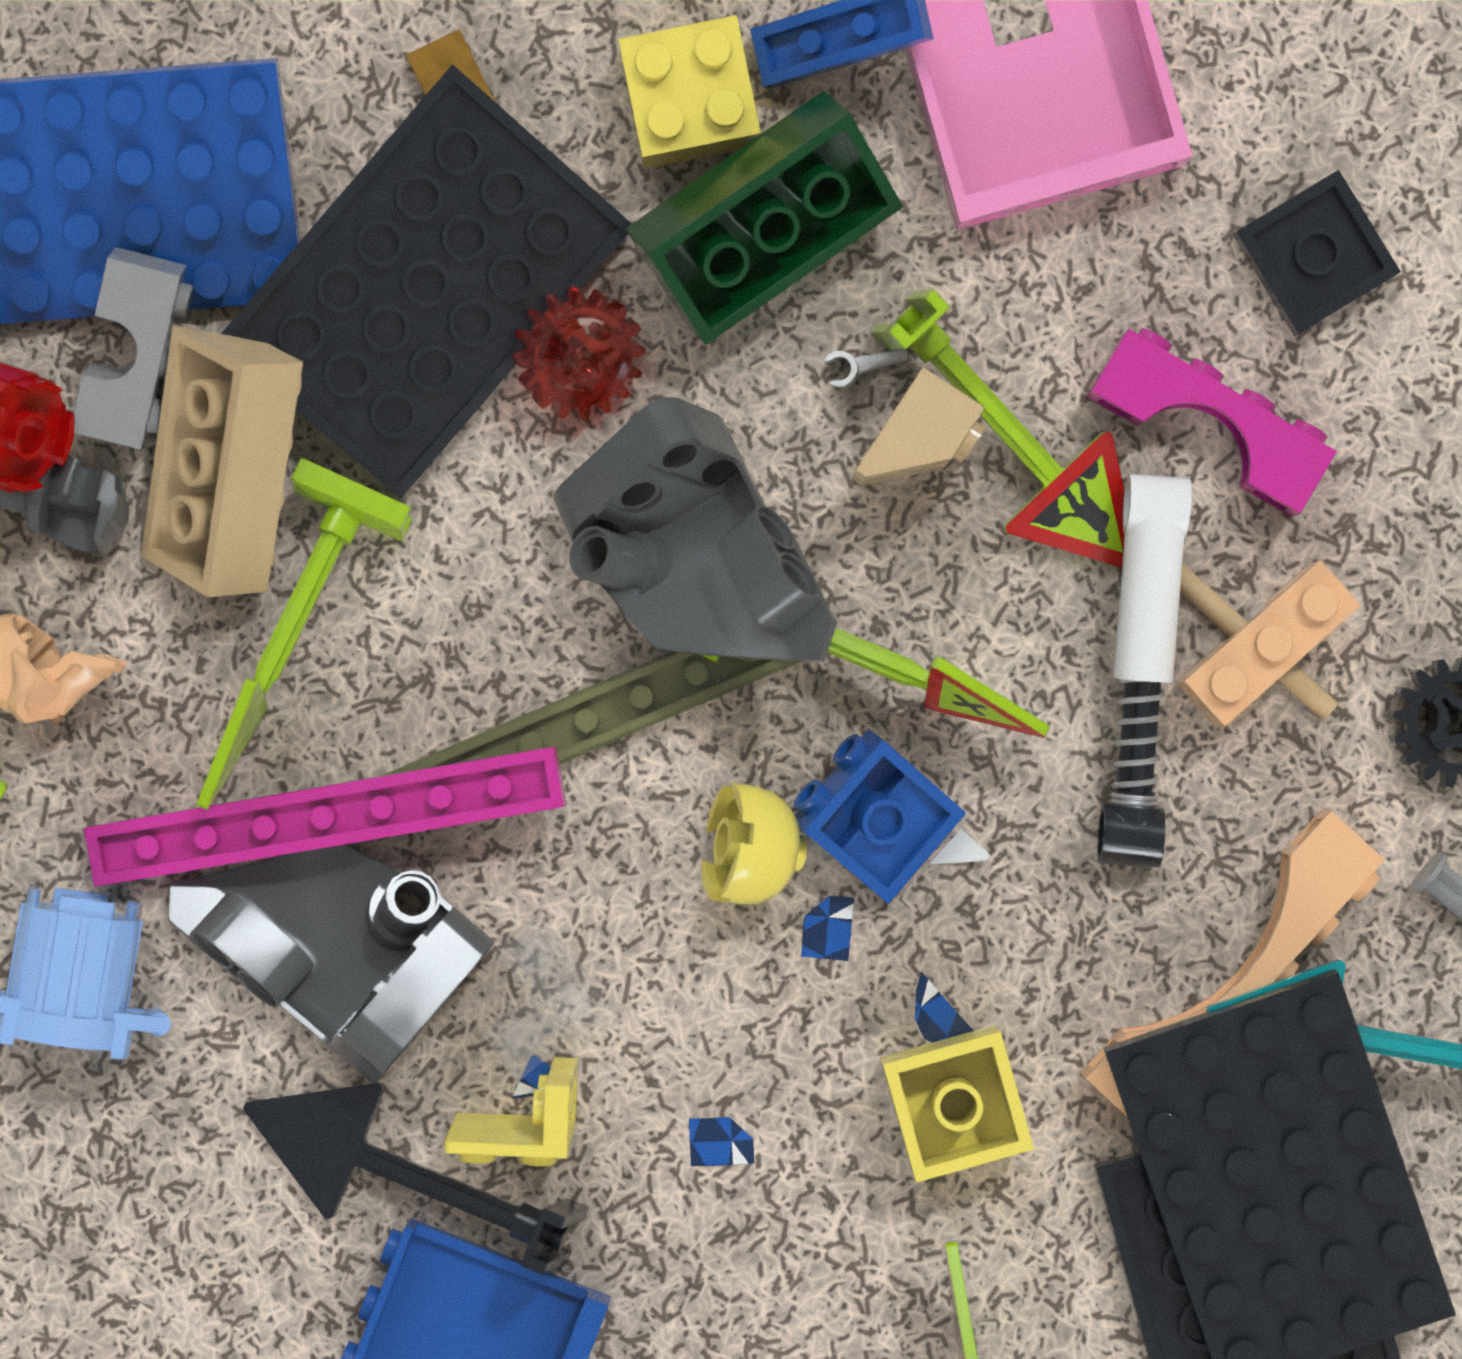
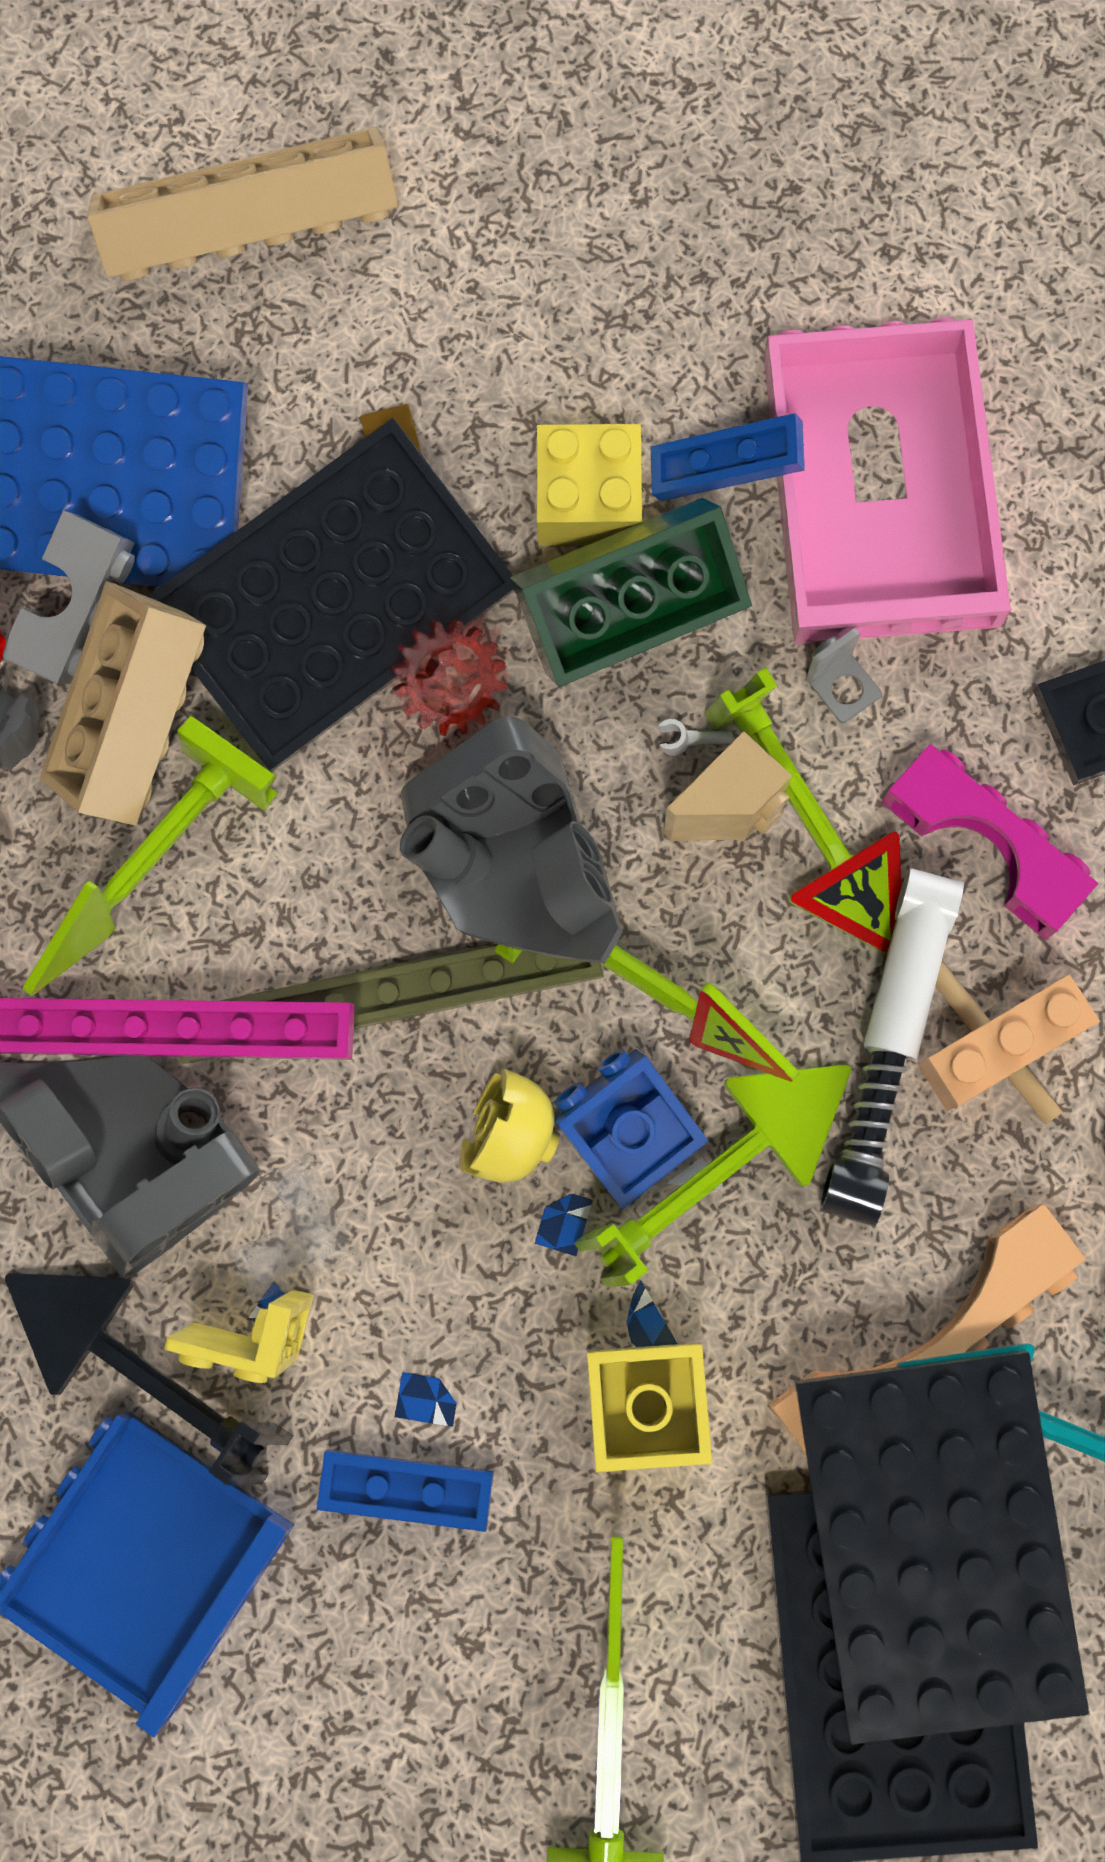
camera: 15 degrees right, 10 degrees down
(720, 1238) = (405, 1490): none -> blue plate
(1002, 248) = (835, 660): none -> light grey bracket
(1041, 772) = (784, 1116): none -> lime piece

